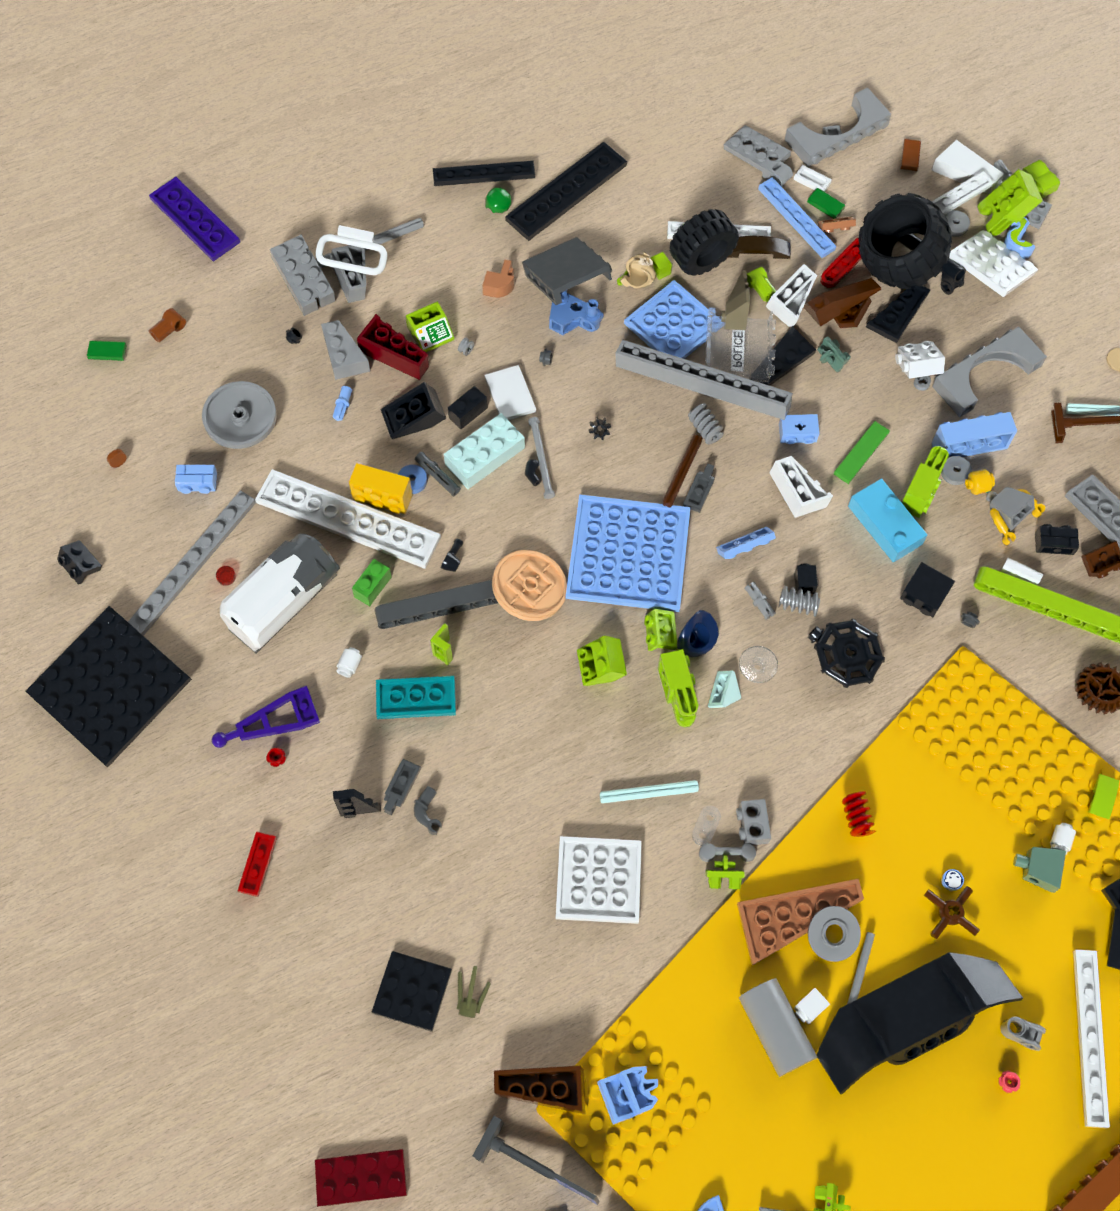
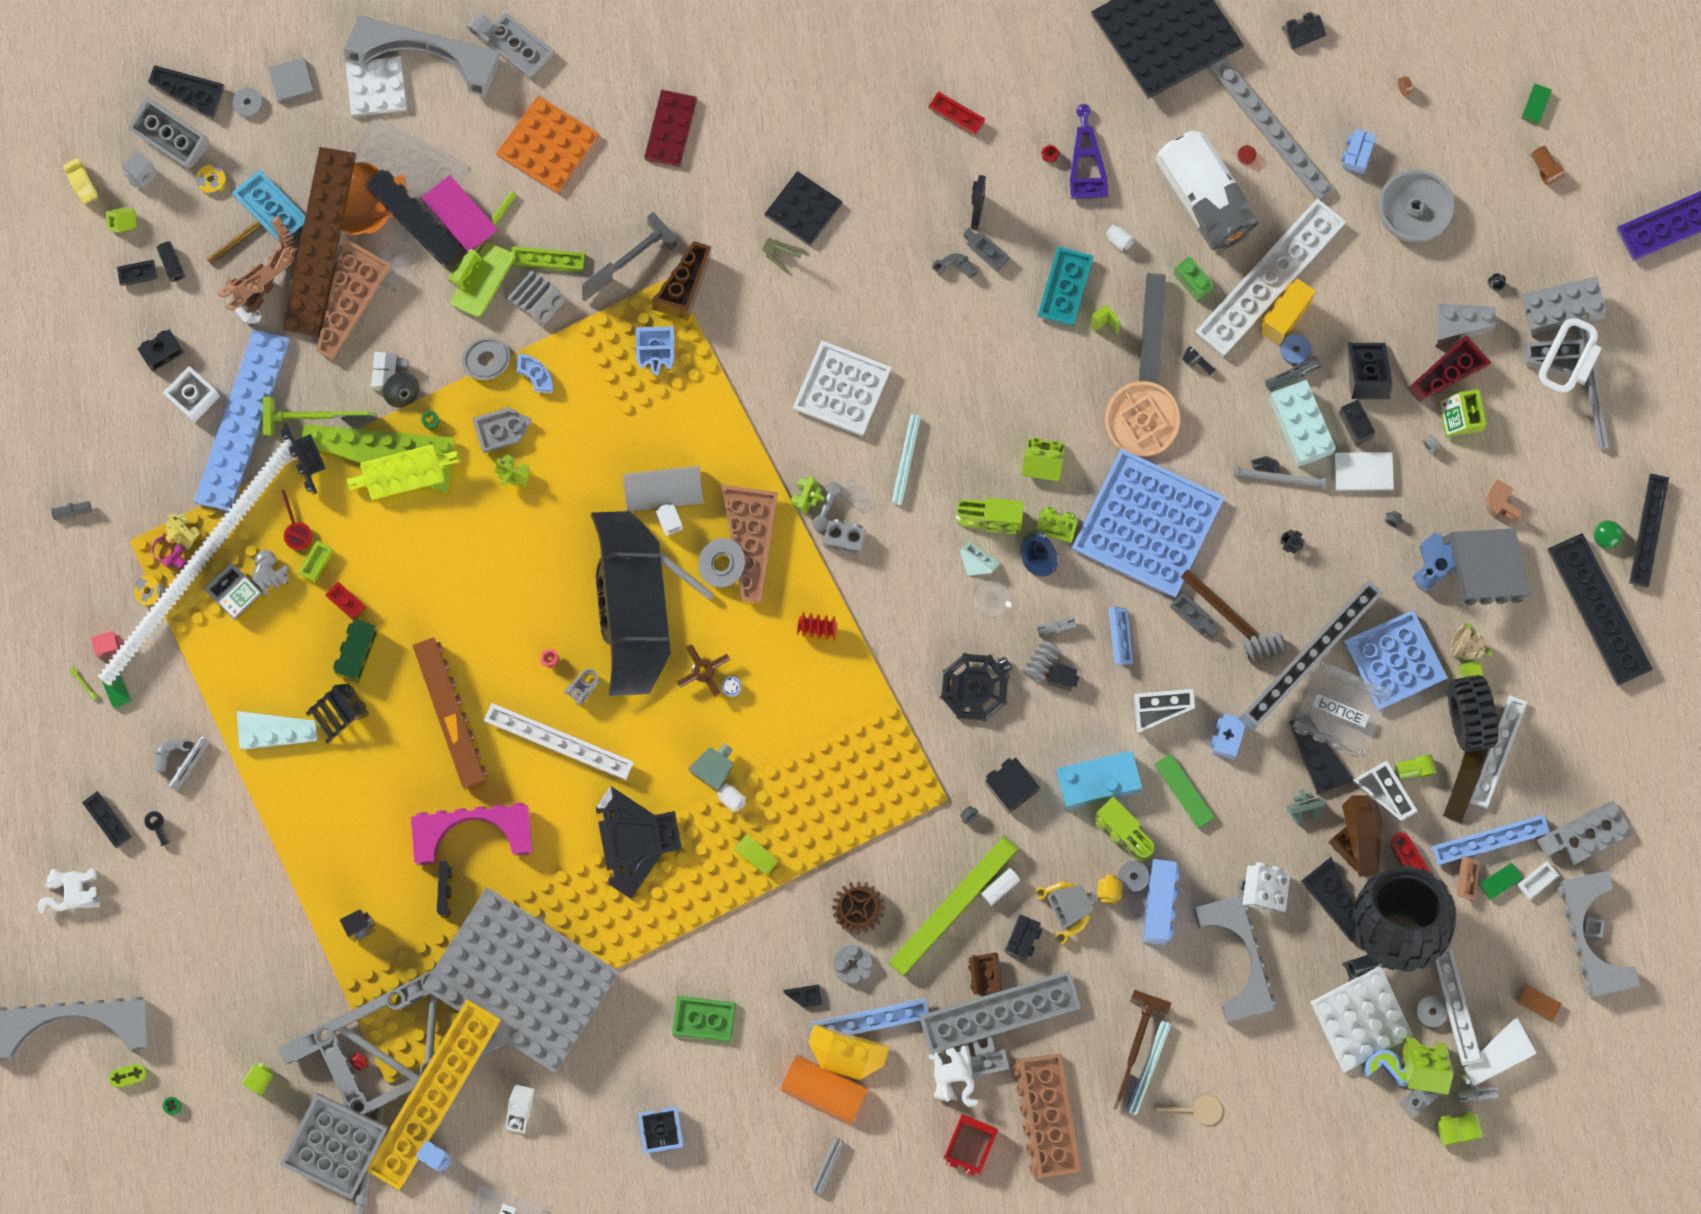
camera: 115 degrees right, 10 degrees up
(342, 403) = (1402, 307): light blue axle -> none
(737, 306) = (1388, 723): dark tan wedge -> none

